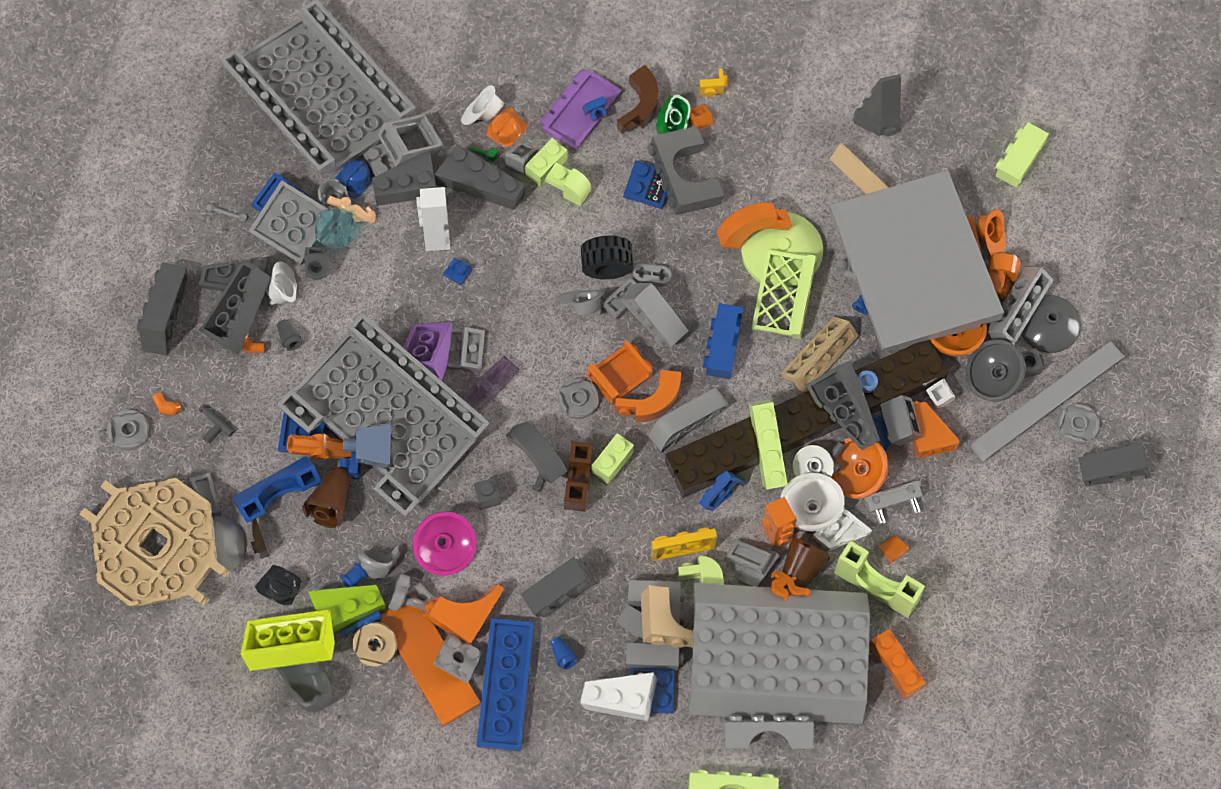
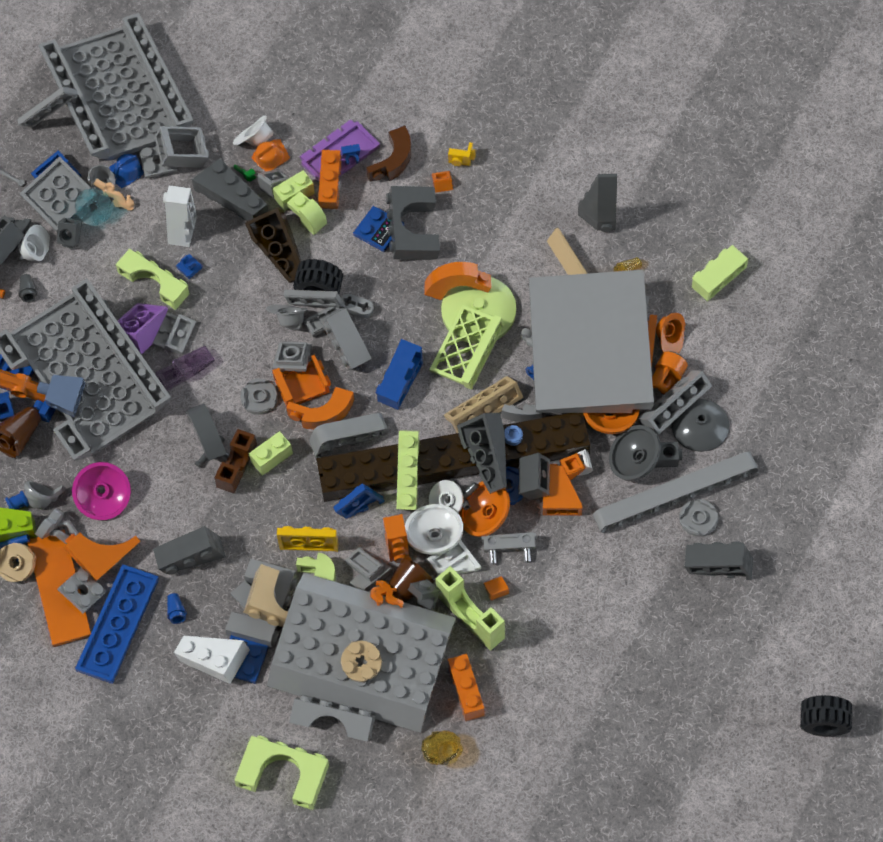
camera: 20 degrees right, 5 degrees down
(251, 127) = (47, 107): none -> light grey tile
(400, 284) = (135, 266): none -> yellowish green arch
(404, 181) = (156, 180): dark grey wedge -> none
(487, 493) = (152, 458): dark grey brick -> none
(544, 222) = (276, 240): none -> dark brown wedge
(583, 141) = (329, 179): none -> orange arch
(605, 277) = (313, 298): none -> light grey tile
(610, 353) = (292, 363): none -> light grey piece
(673, 115) = (418, 173): green piece -> none
(778, 674) = (366, 671): none -> tan plate
(828, 575) = (426, 594): none -> dark grey bracket
(871, 352) = (515, 414): none -> light grey slope
(889, 730) = (442, 748): none -> clear yellow hair
(924, 168) = (631, 264): none -> clear yellow cone
(935, 398) = (572, 465): none -> orange slope

